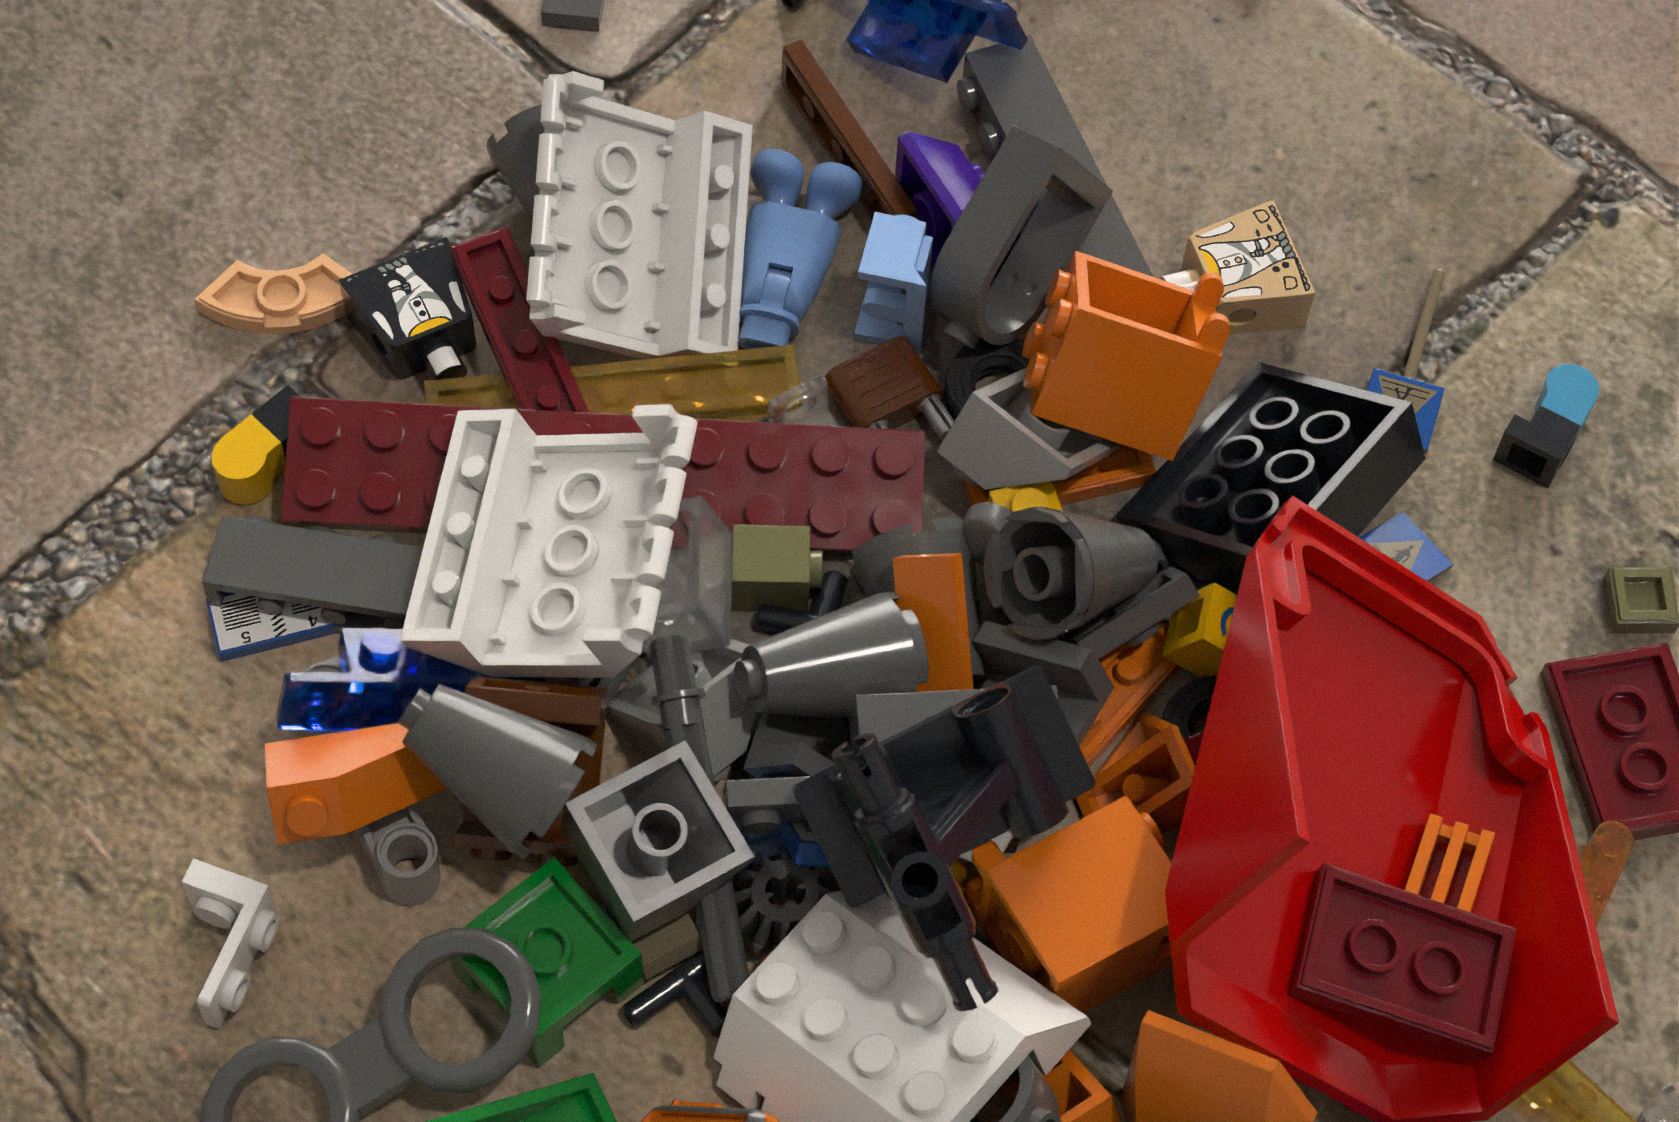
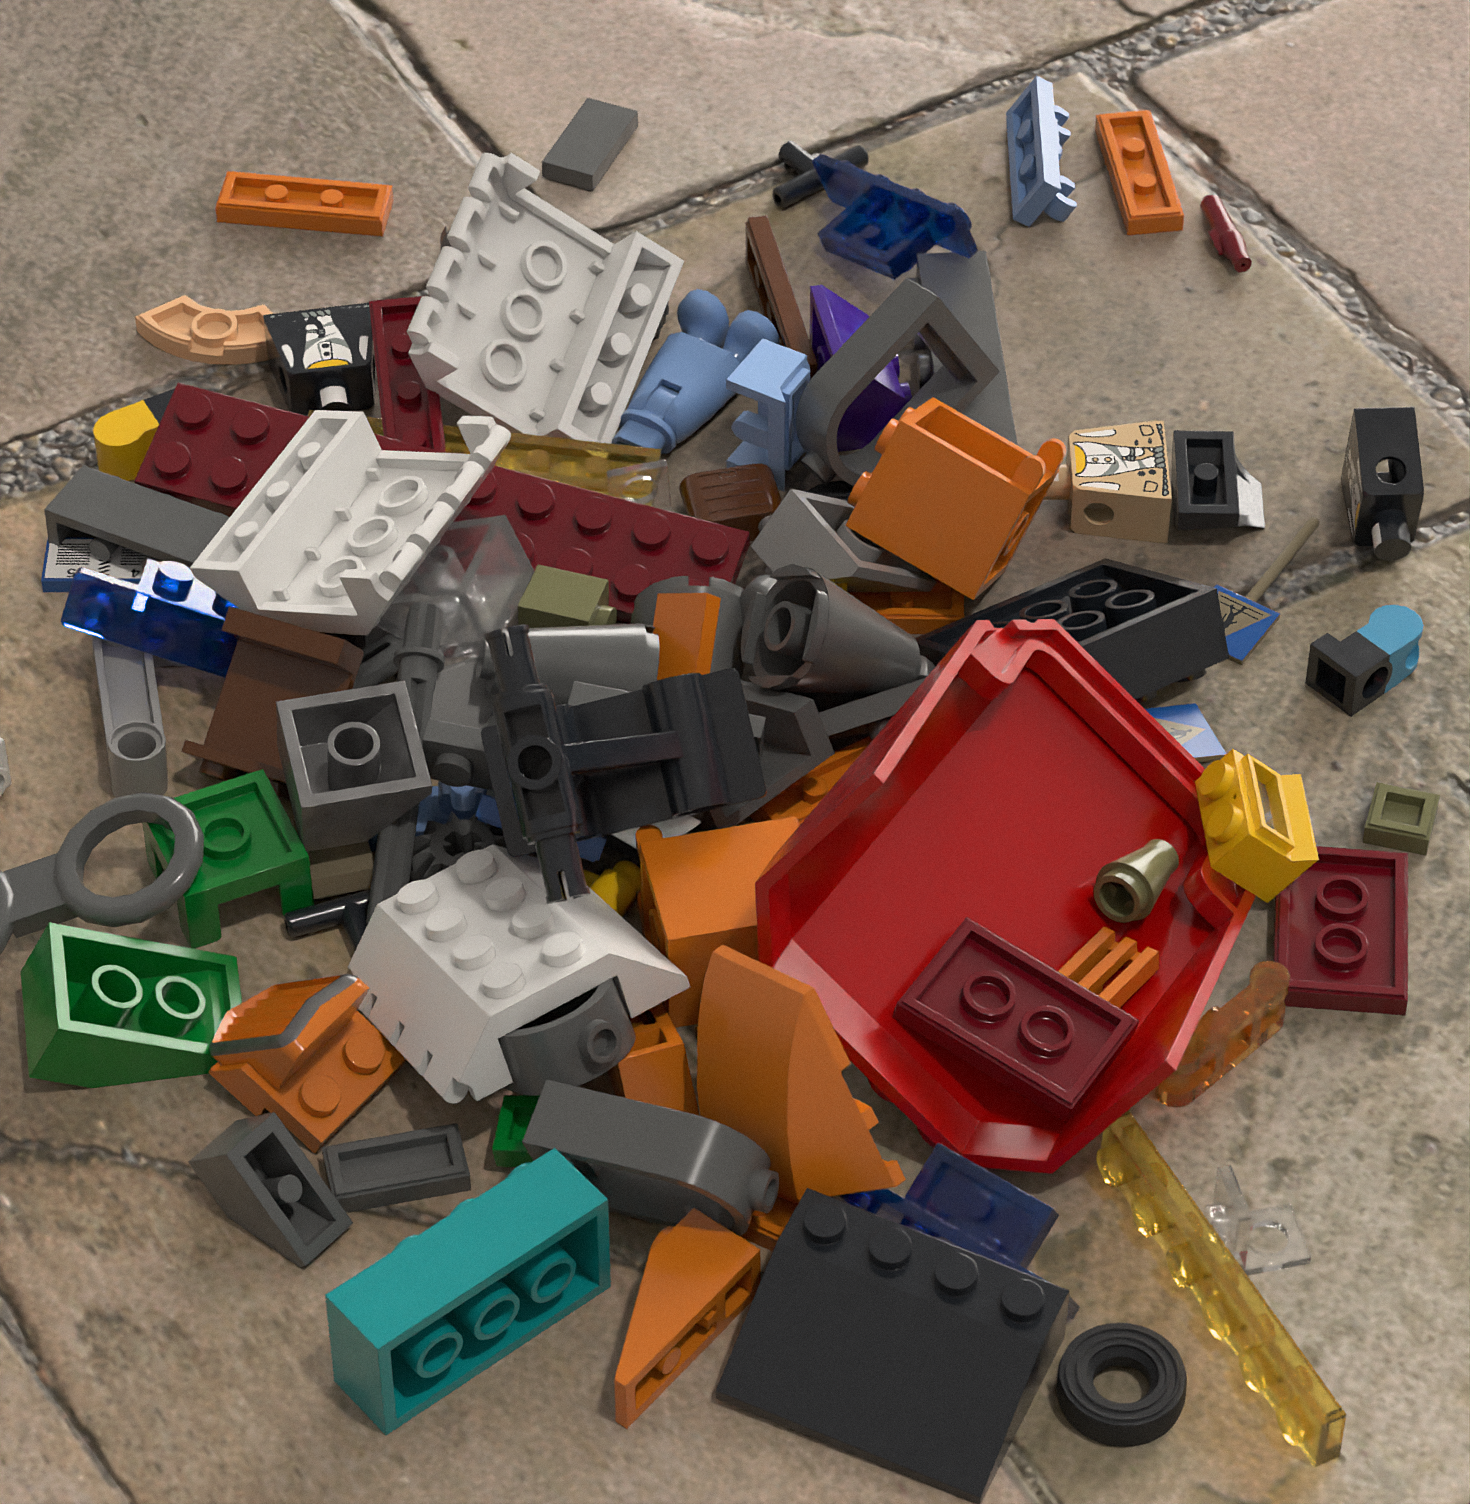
camera: 20 degrees right, 15 degrees down
(314, 114) = (304, 203): none -> orange tile
(342, 781) = (122, 667): orange slope -> none
(495, 761) = (232, 668): dark grey cone -> none
(1334, 254) = (1212, 484): none -> black slope
(1443, 756) = (1134, 882): none -> olive cone
(1500, 222) = (1383, 505): none -> black torso
(1532, 657) = (1255, 824): none -> yellow window

